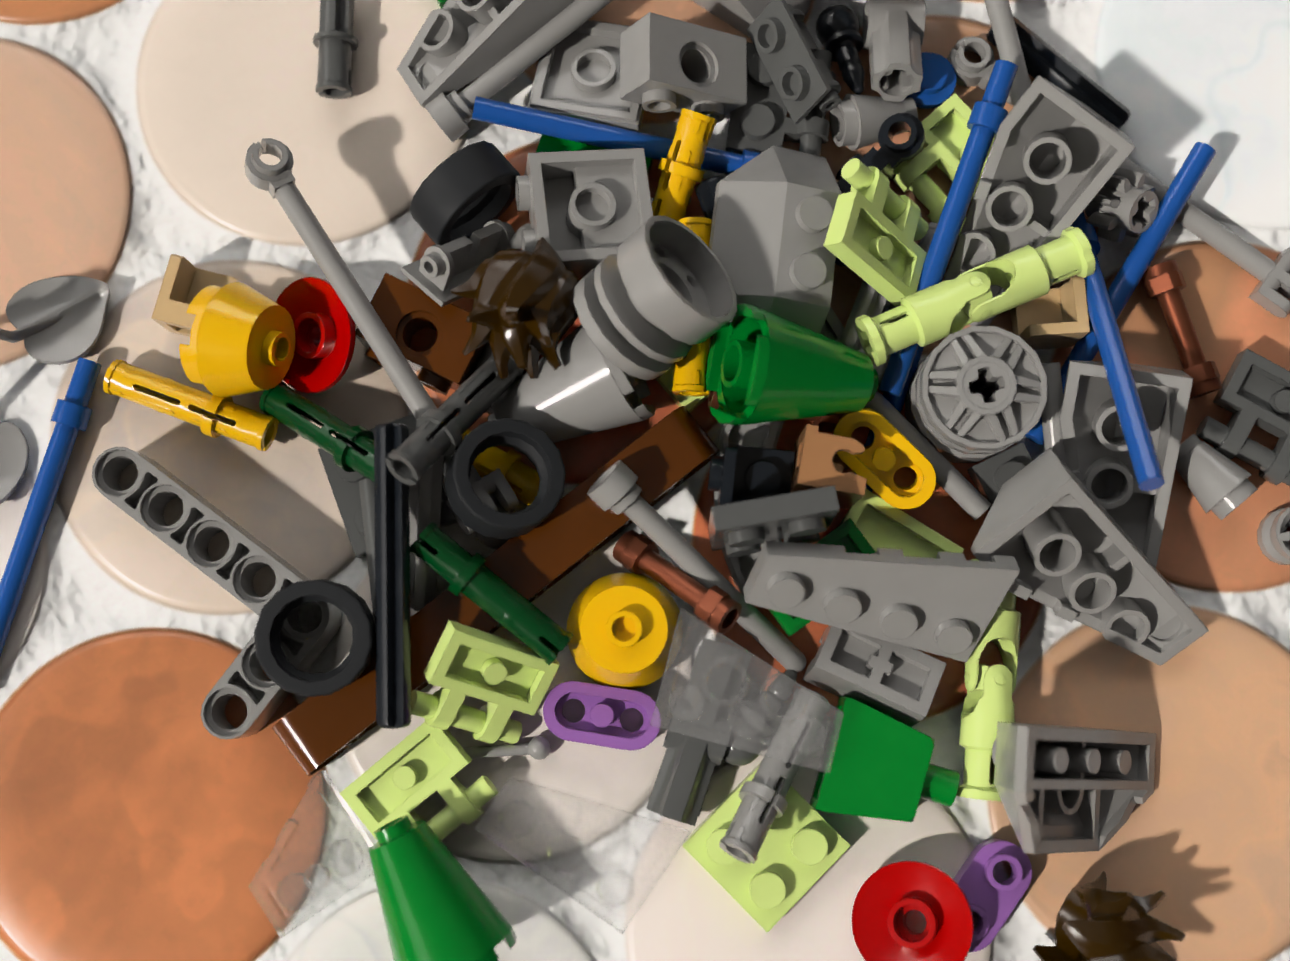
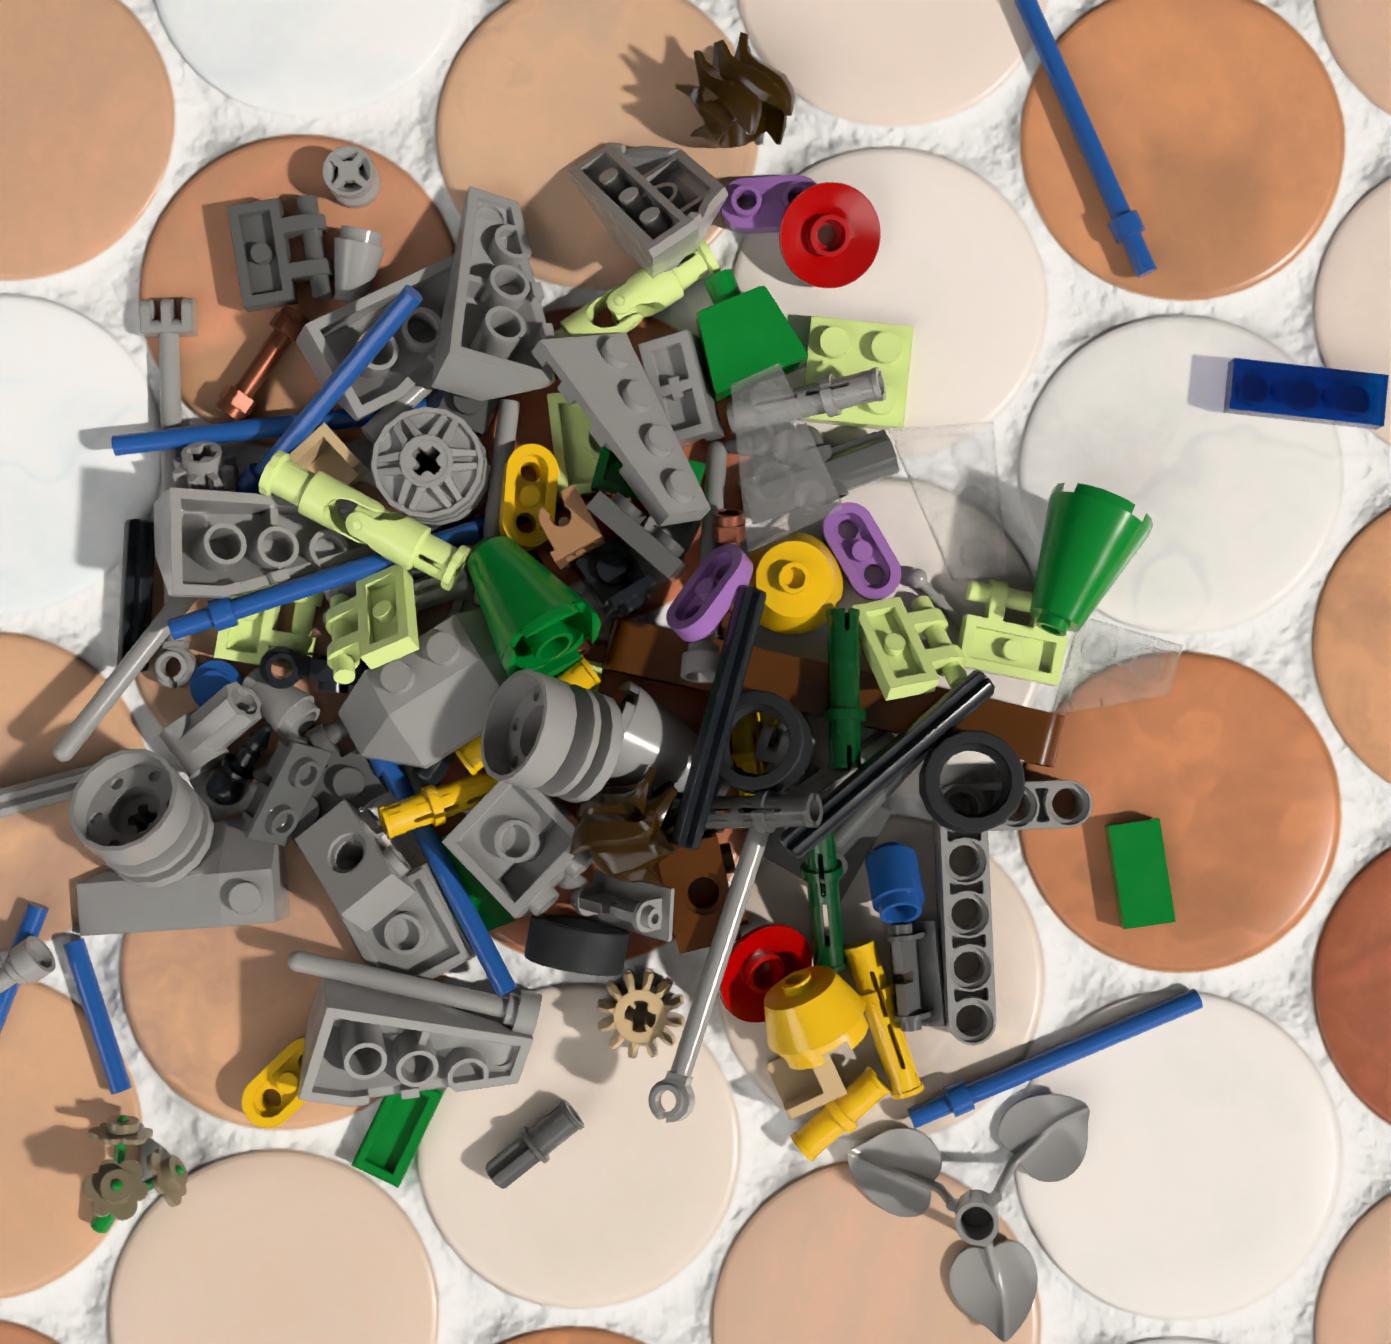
camera: 135 degrees left, 5 degrees up
(121, 730) = (1140, 873): none -> green tile
(143, 287) = (840, 1114): none -> yellow pin
(201, 462) = (917, 974): none -> dark grey hinge
(291, 505) = (895, 883): none -> blue brick
(353, 224) = (624, 1020): none -> tan gear
(554, 457) = (718, 718): none -> black axle
(670, 540) = (709, 593): none -> medium lavender plate

